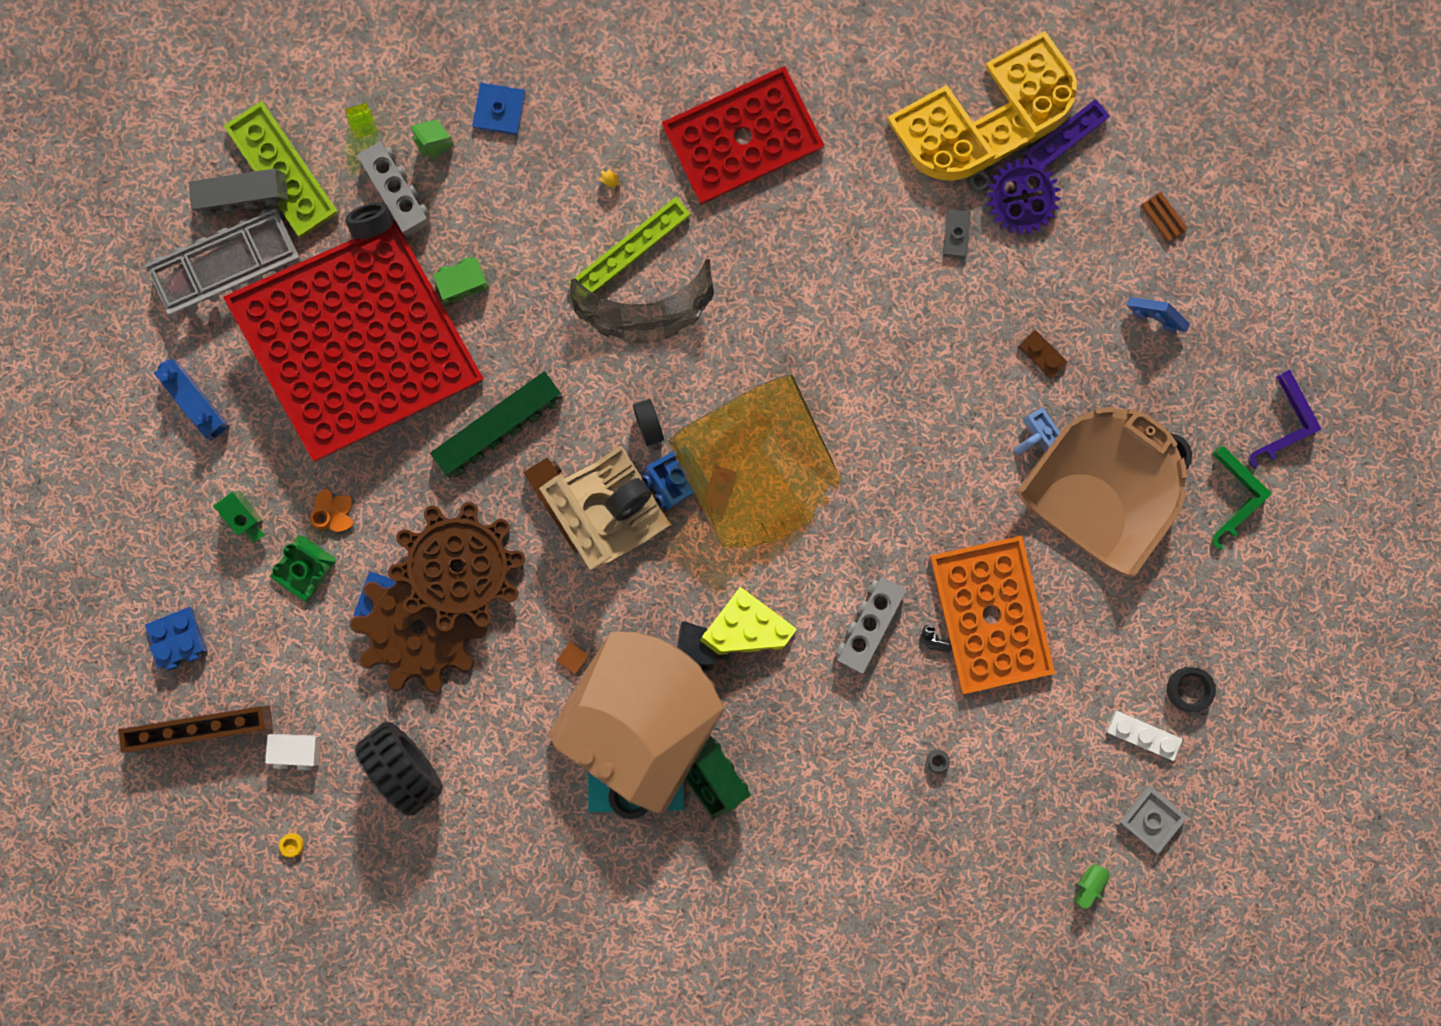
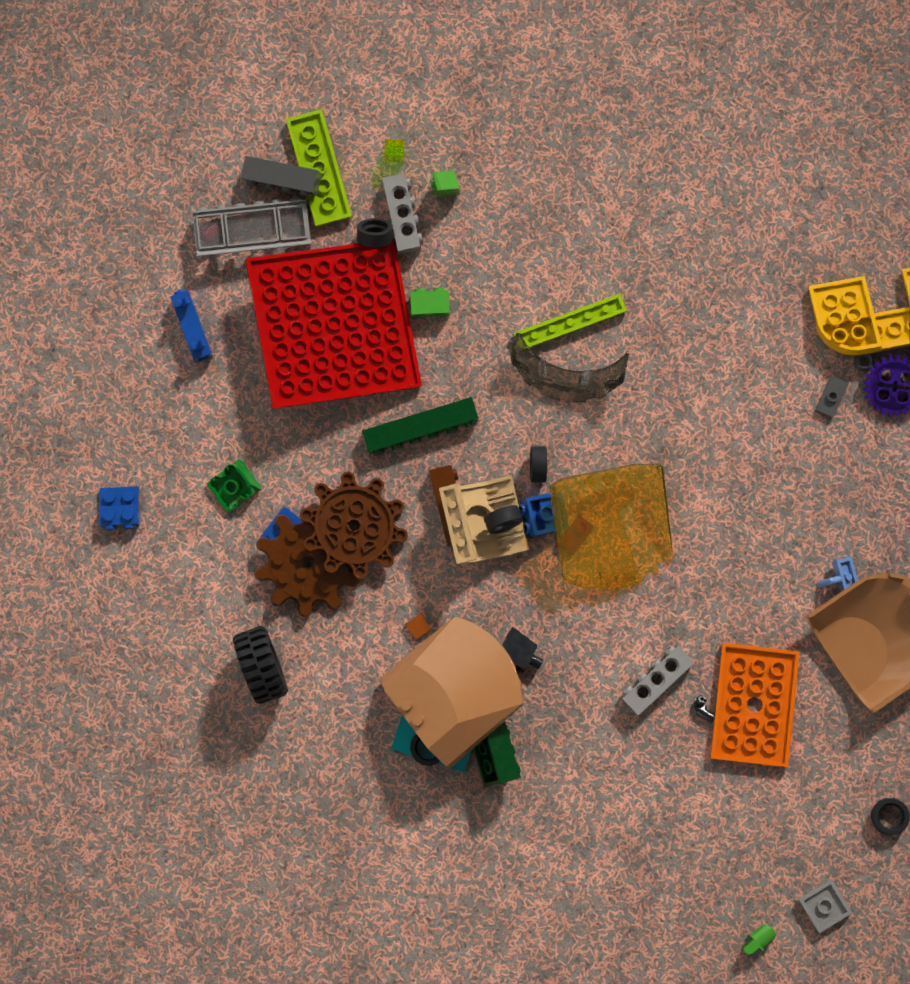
camera: 25 degrees right, 0 degrees up
(195, 729) = (114, 581): reddish brown brick -> none
(231, 510) = (200, 421): green torso -> none
(291, 845) = (155, 695): yellow tile -> none
(293, 750) = (181, 623): white brick -> none
(335, 511) = (273, 450): orange plate -> none
(498, 108) = (504, 176): blue plate -> none
(610, 179) = (573, 261): yellow plate -> none
(747, 627) = (561, 649): neon yellow plate -> none
(766, 108) = (719, 258): red plate -> none
(945, 761) = (678, 799): dark grey plate -> none
(1043, 354) = (866, 515): reddish brown plate -> none
(1144, 735) = (841, 839): white plate -> none

